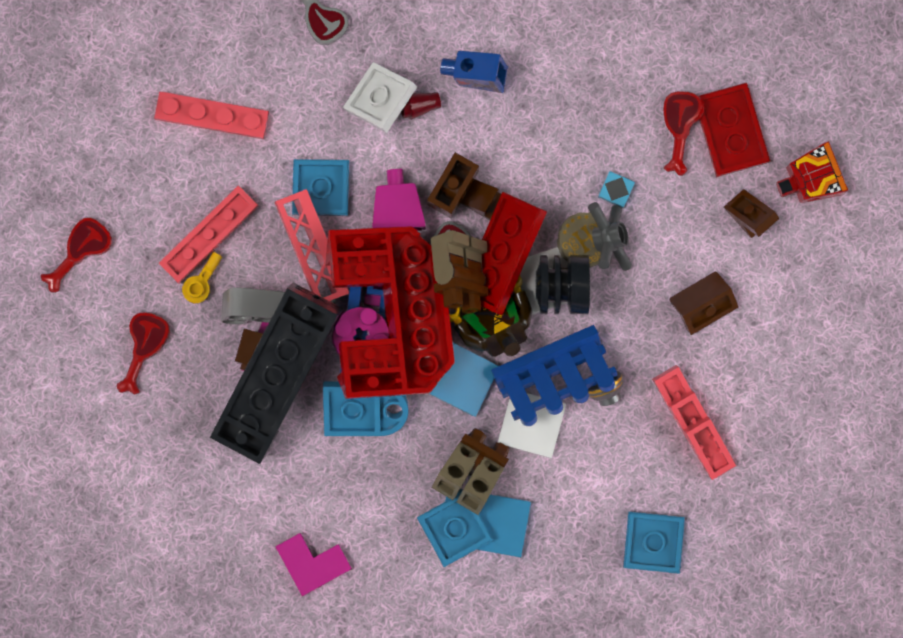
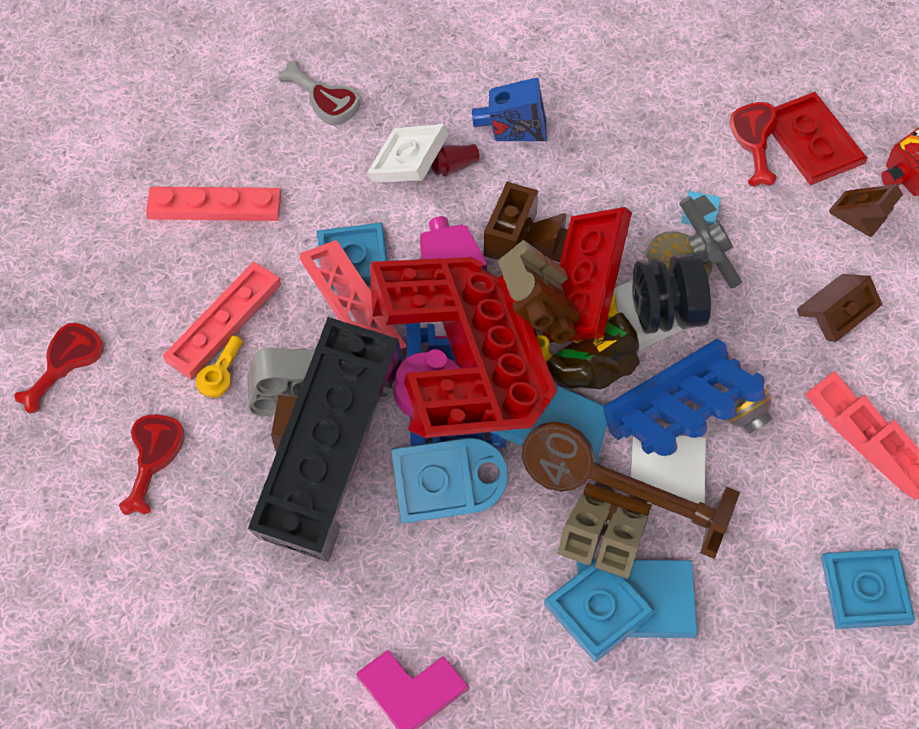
camera: 10 degrees left, 25 degrees down
(455, 414) = (564, 460): none -> reddish brown piece

